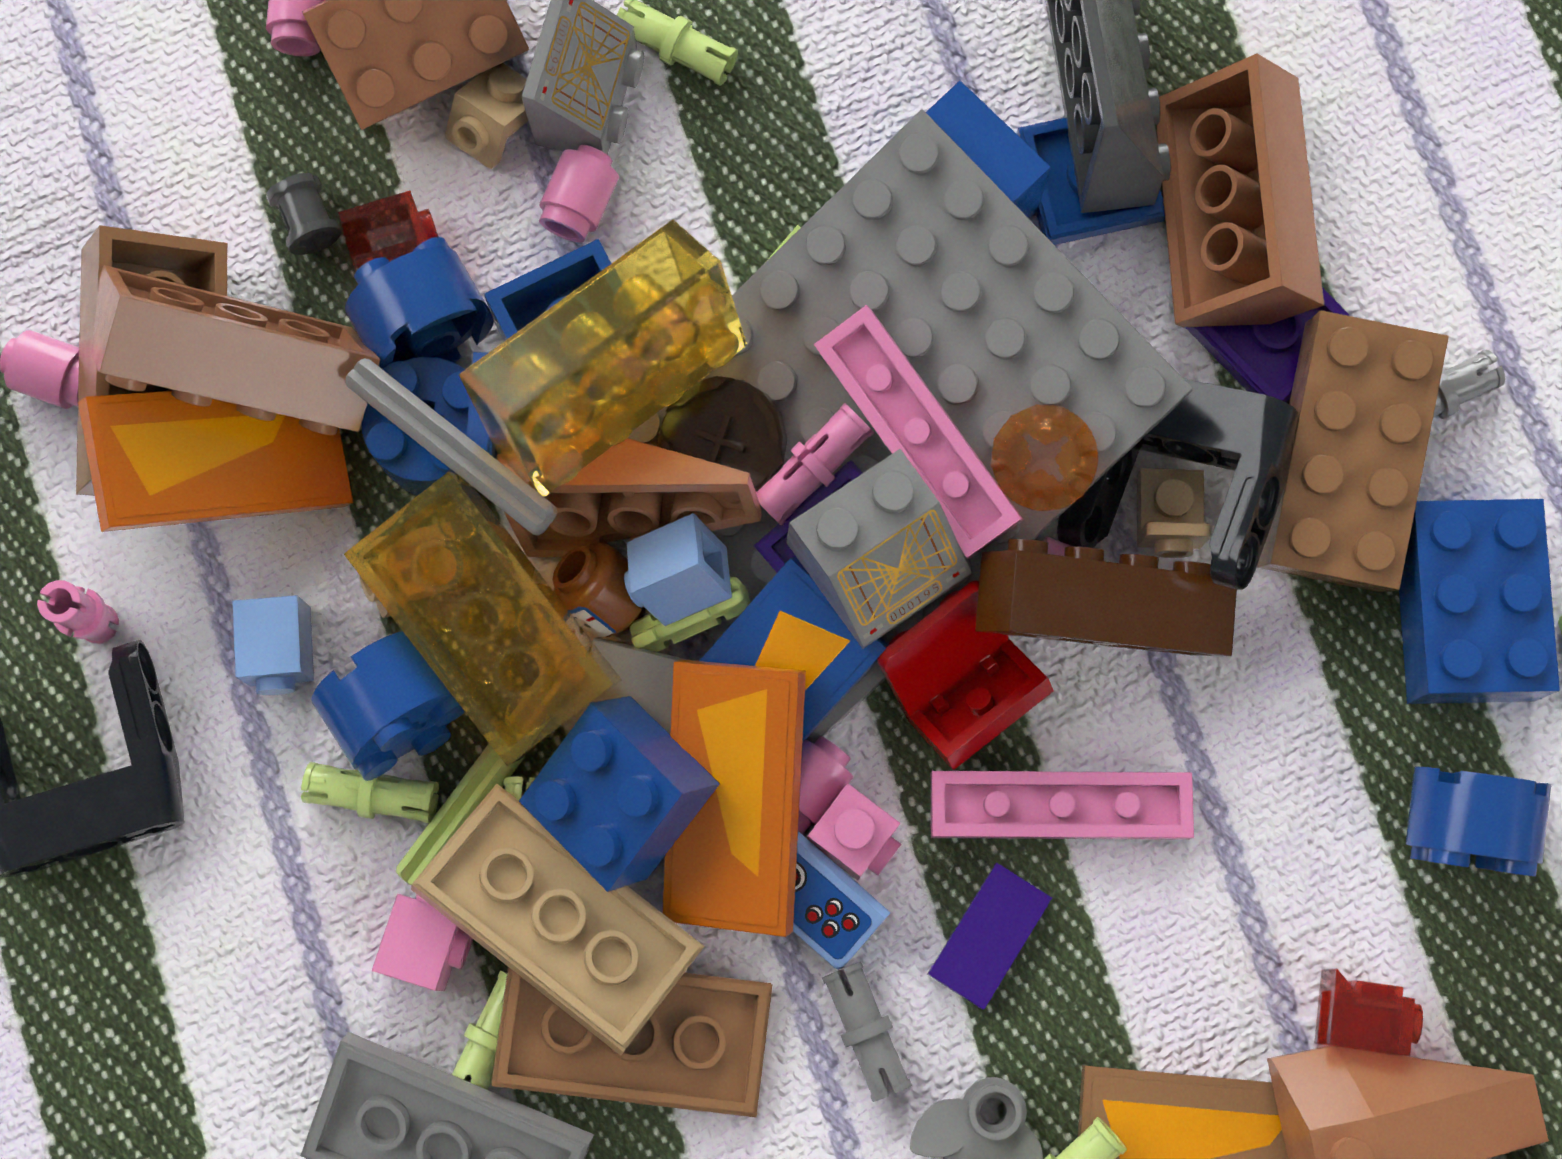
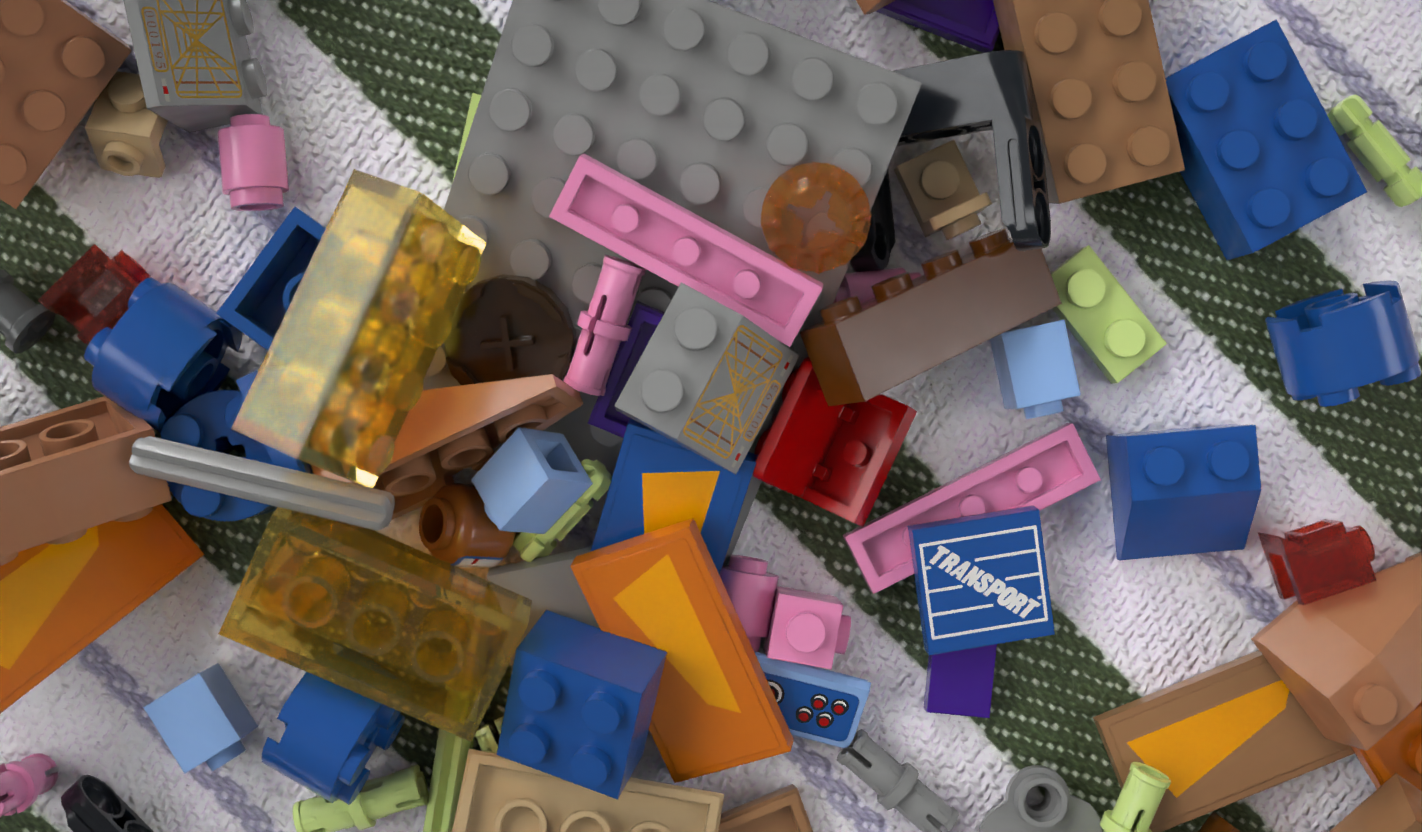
camera: 25 degrees left, 10 degrees up
(1038, 871) = (981, 580): none -> blue tile
(1181, 706) = (1035, 368): none -> light blue brick
(1266, 694) = (1103, 316): none -> yellowish green plate
(1266, 887) = (1183, 490): none -> blue slope

